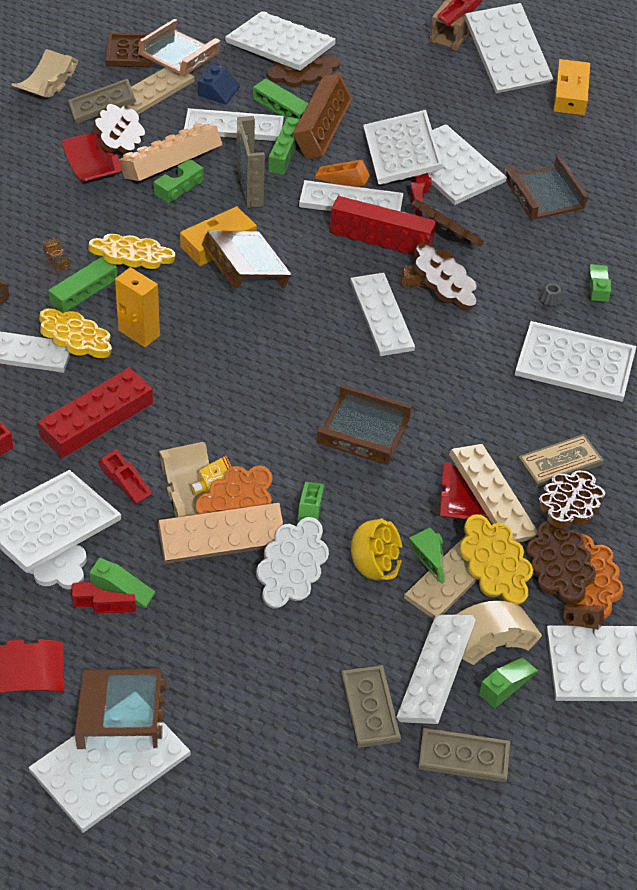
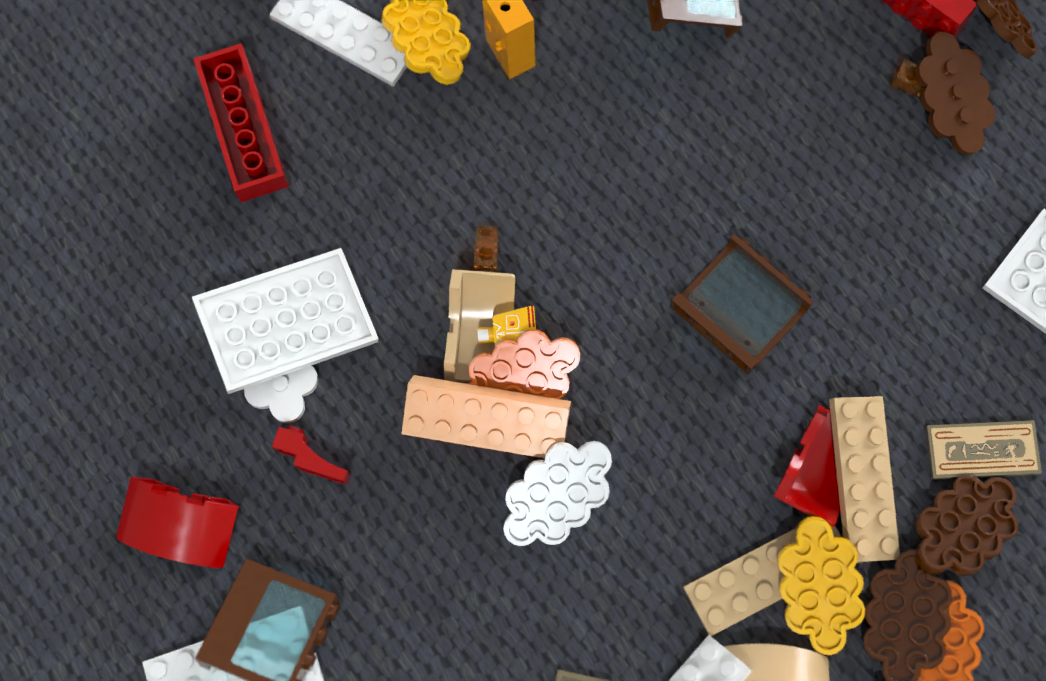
camera: 30 degrees right, 25 degrees up
(95, 412) = (405, 169): red brick -> none
(117, 580) = (341, 443): bright green slope -> none
(124, 476) = (404, 283): red slope -> none
(173, 438) = (486, 249): none -> clear orange leg
(311, 501) = (620, 405): bright green slope -> none
(374, 547) = (664, 504): yellow cylinder -> none
(382, 314) = (842, 125): white plate -> none
(429, 551) = (742, 541): bright green slope -> none

